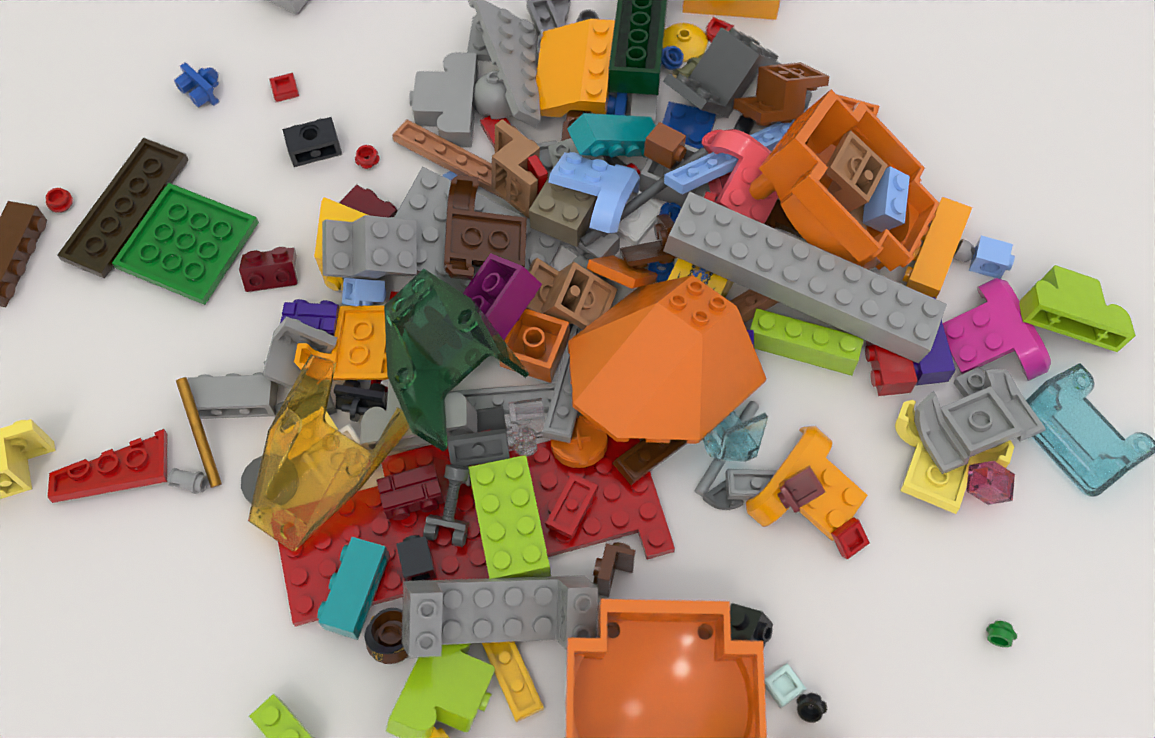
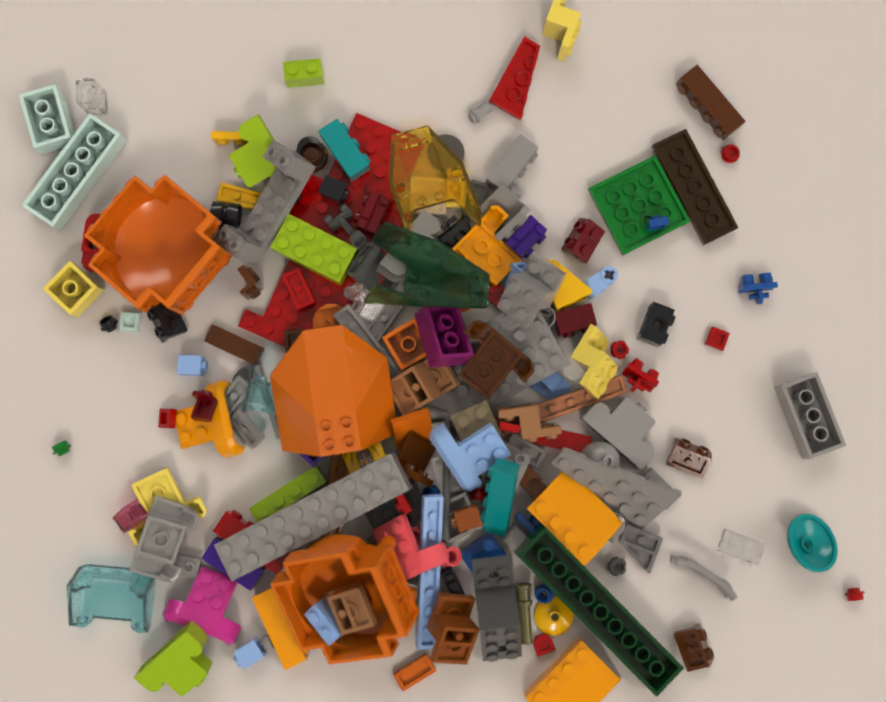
camera: 125 degrees right, 20 degrees up
(194, 203) = (657, 222): none -> blue plate
(198, 432) = (500, 132): pearl gold bar -> none
(302, 221) = (598, 283): none -> light blue piece
(384, 119) = (640, 379): none -> red hips
(399, 155) = (592, 358): none -> light yellow bracket
(427, 30) = (689, 457): none -> reddish brown bracket
(549, 669) = (227, 214): none -> black wheel
(699, 537) = (234, 344): none -> reddish brown tile
(767, 560) = (191, 365): none -> light blue brick
(777, 439) = (247, 428): none -> light grey plate

